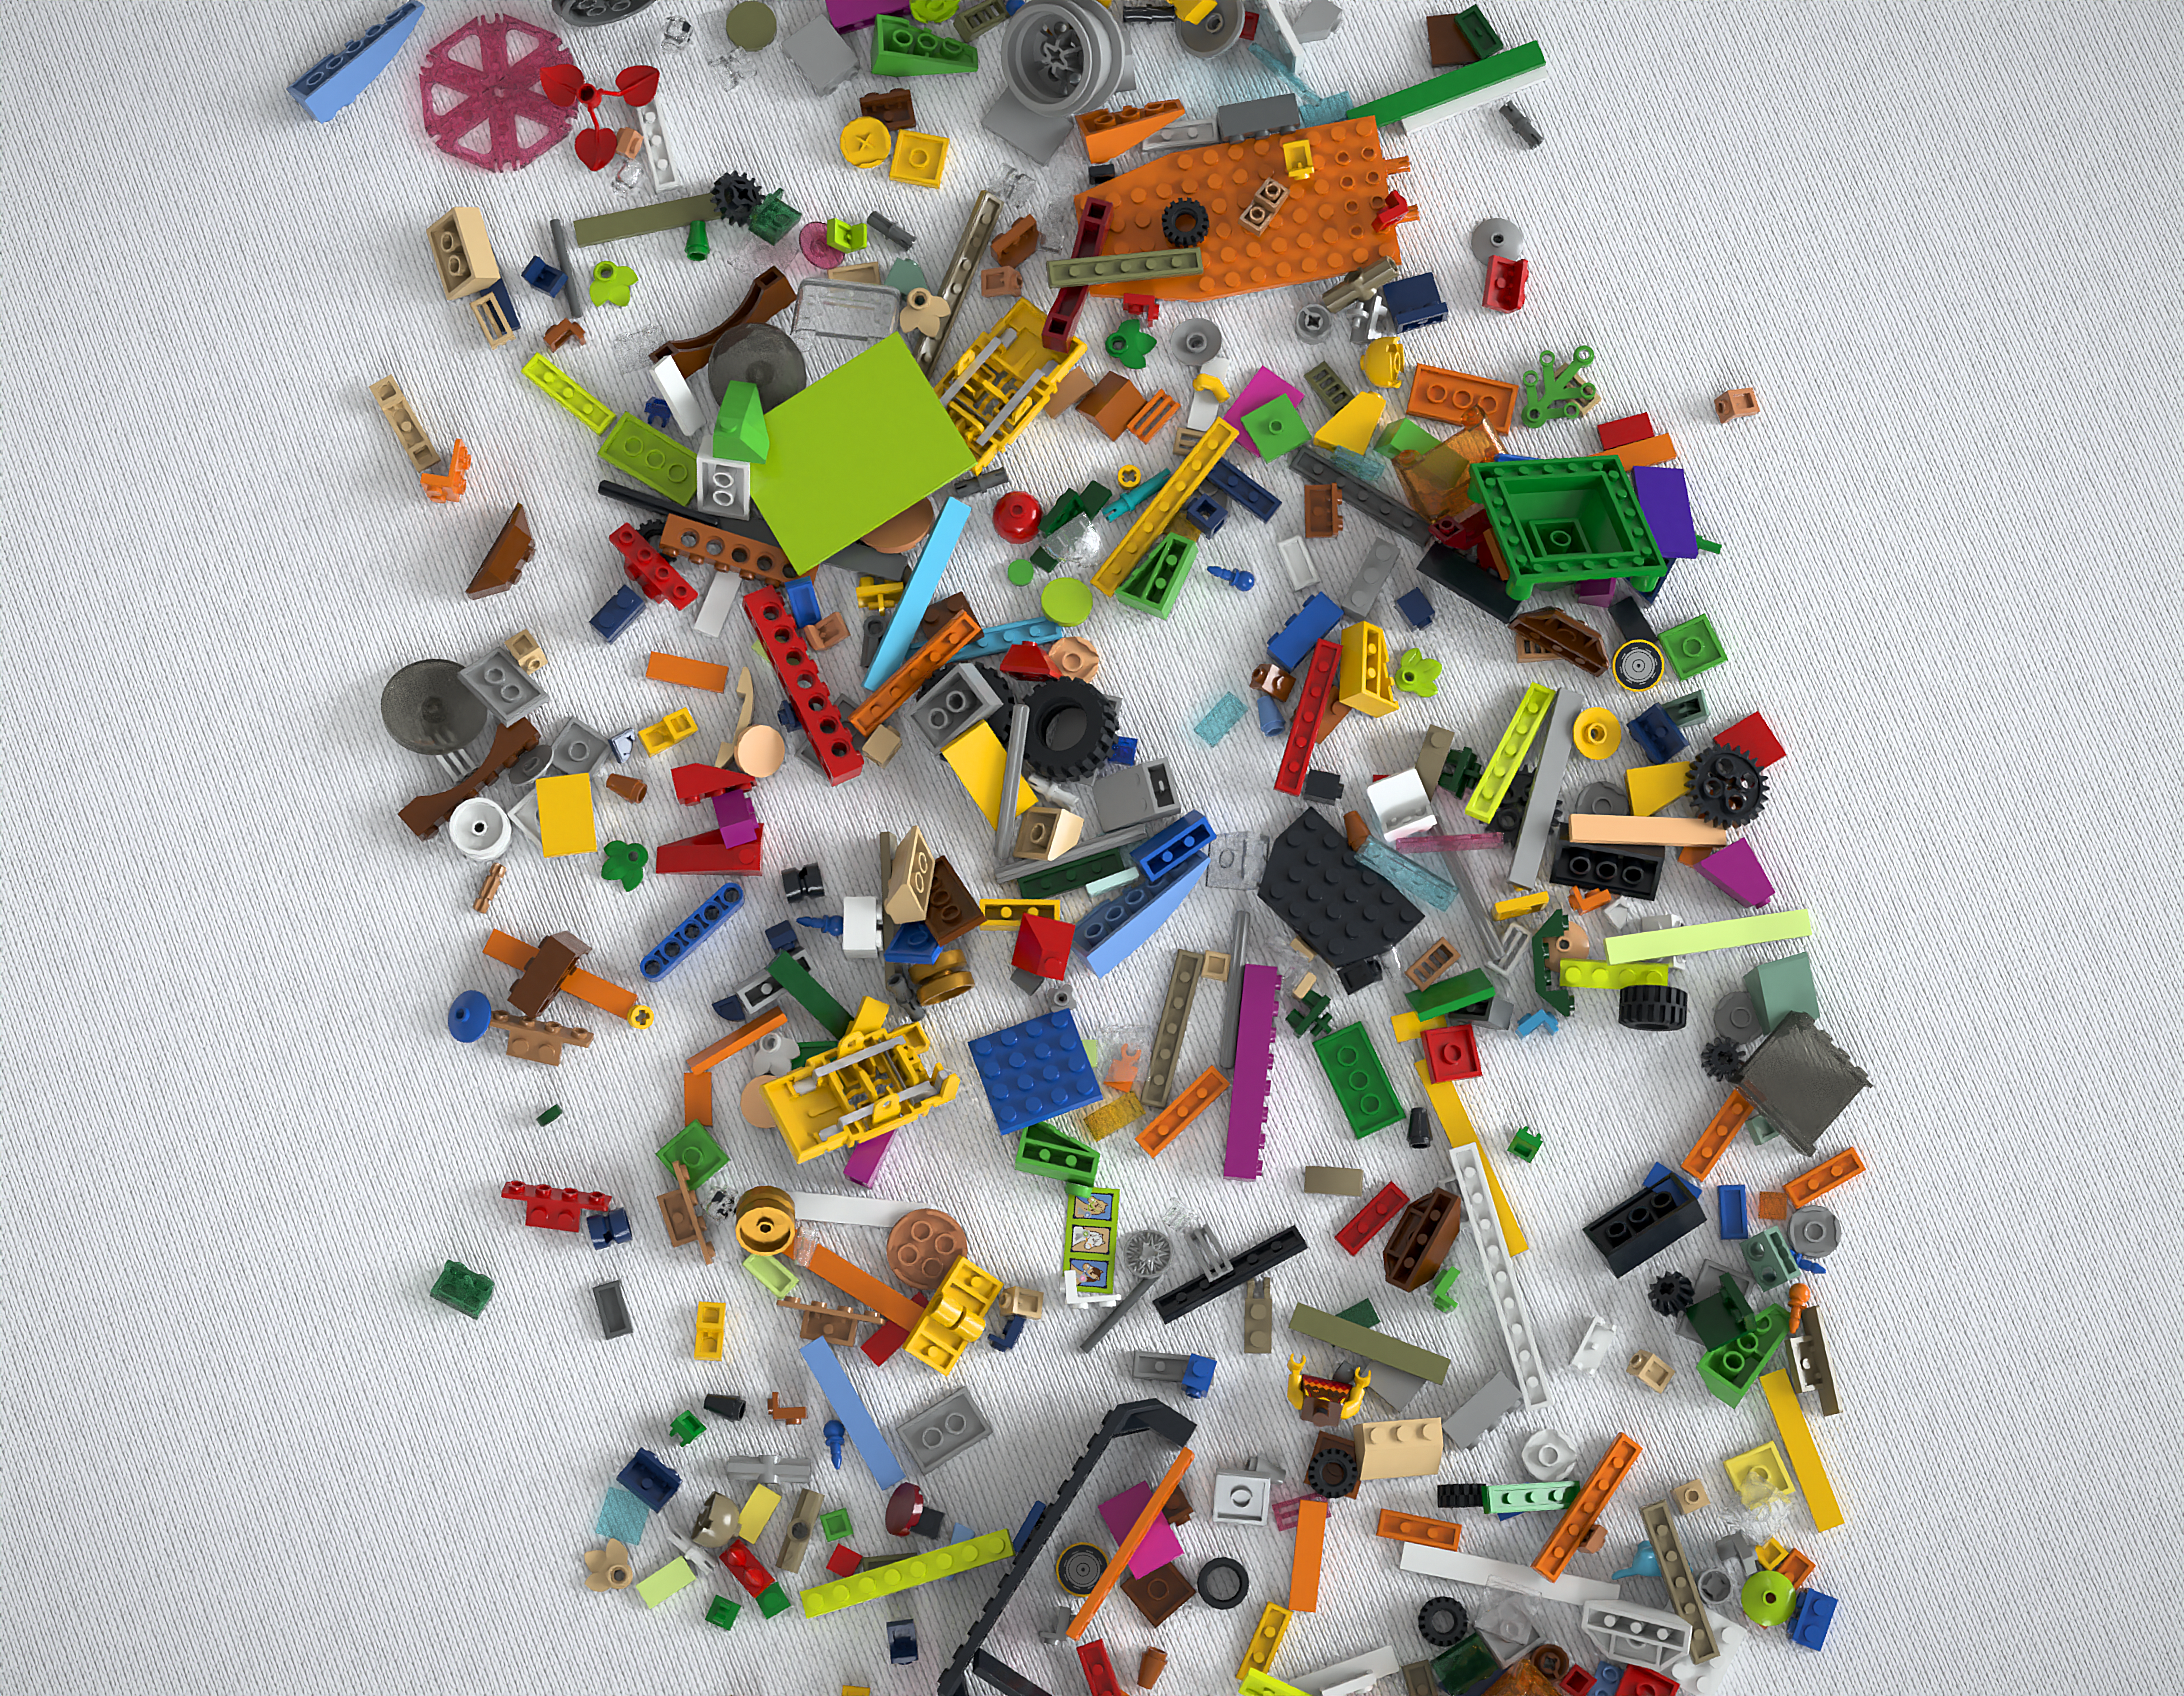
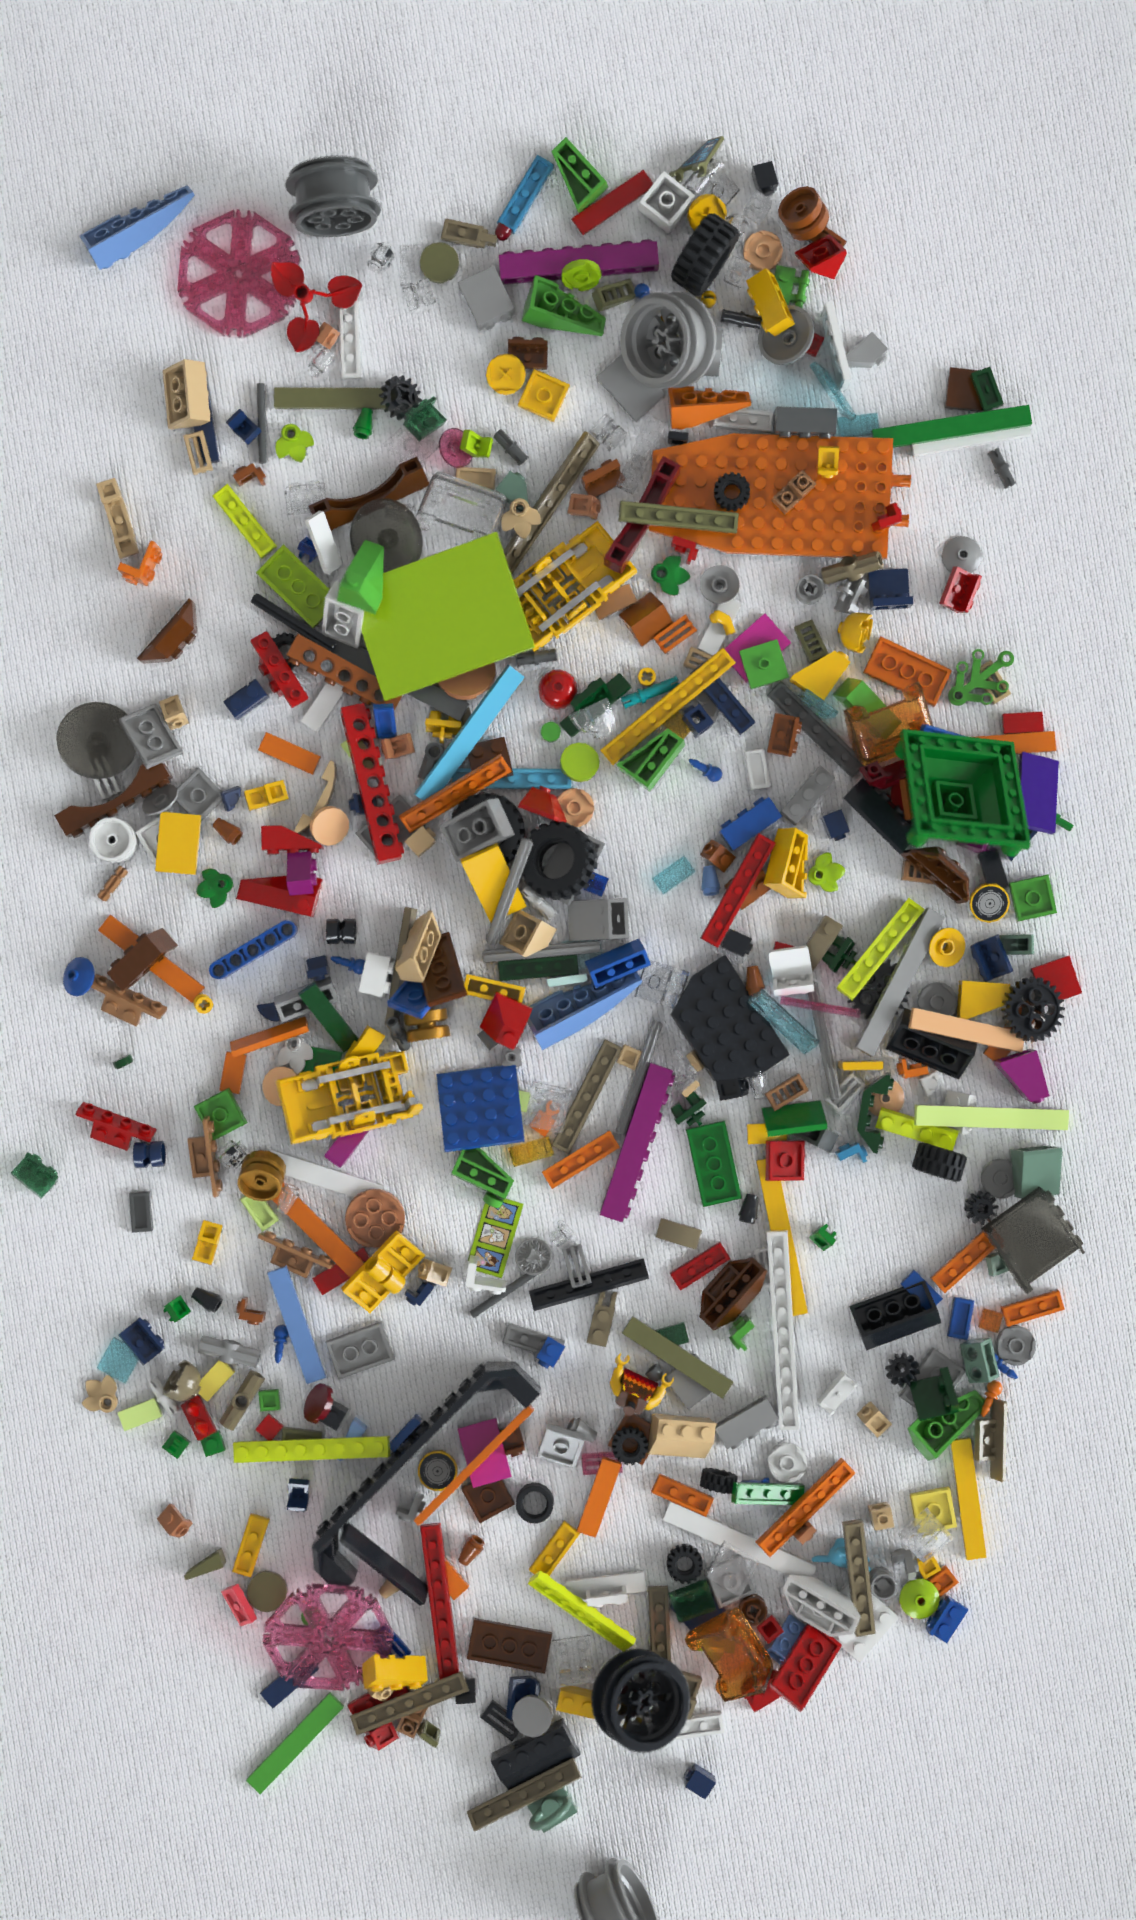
camera: 15 degrees right, 10 degrees up
(1736, 404) = (1110, 720): nougat bracket -> none

